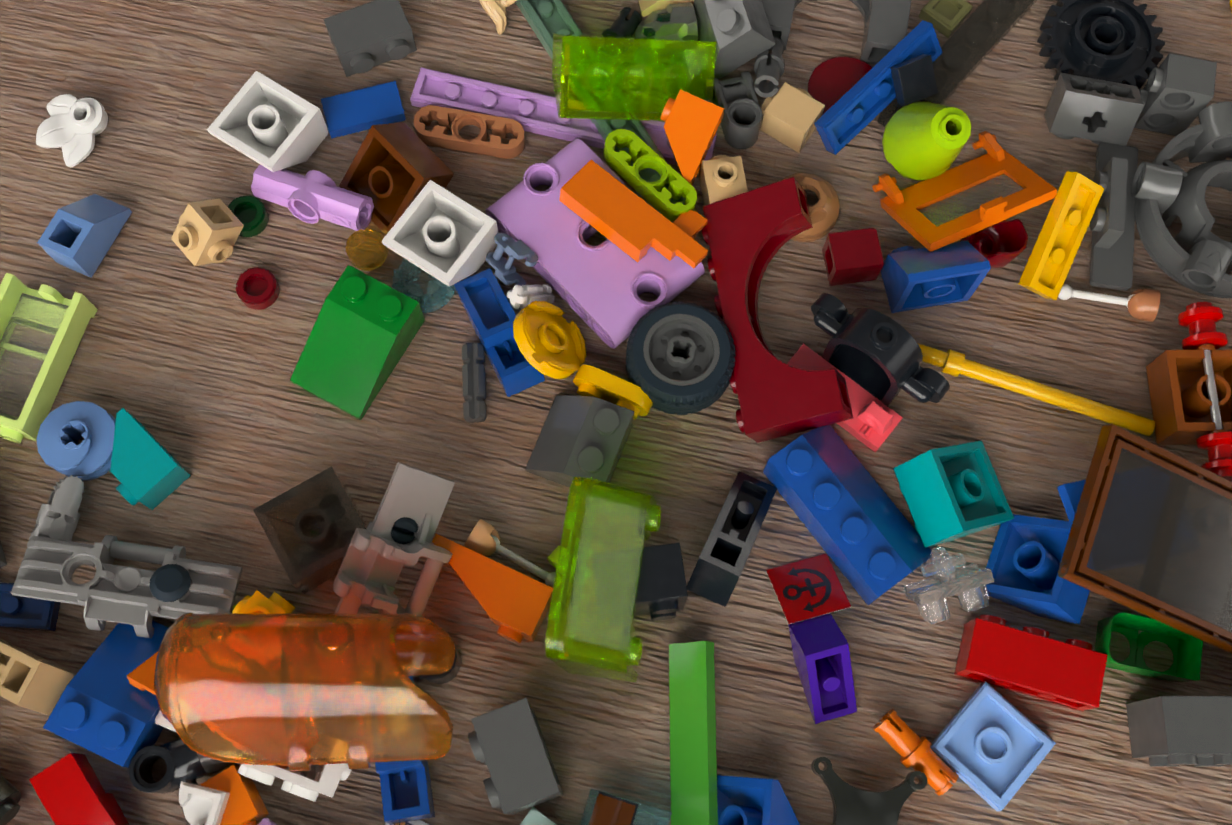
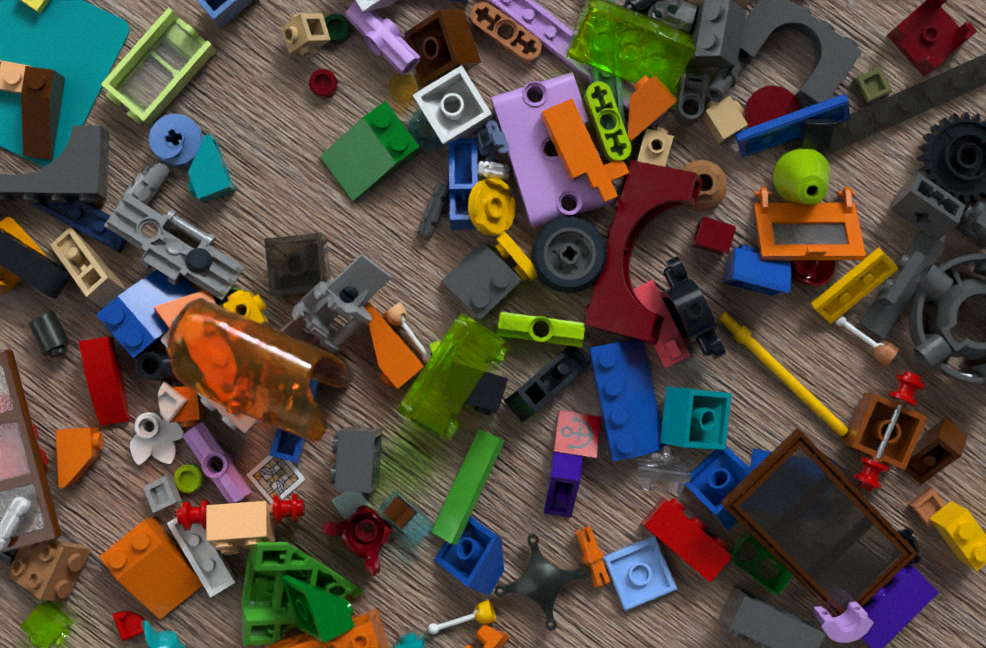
camera: 25 degrees right, 15 degrees up
(715, 461) = (560, 331): none -> lime piece

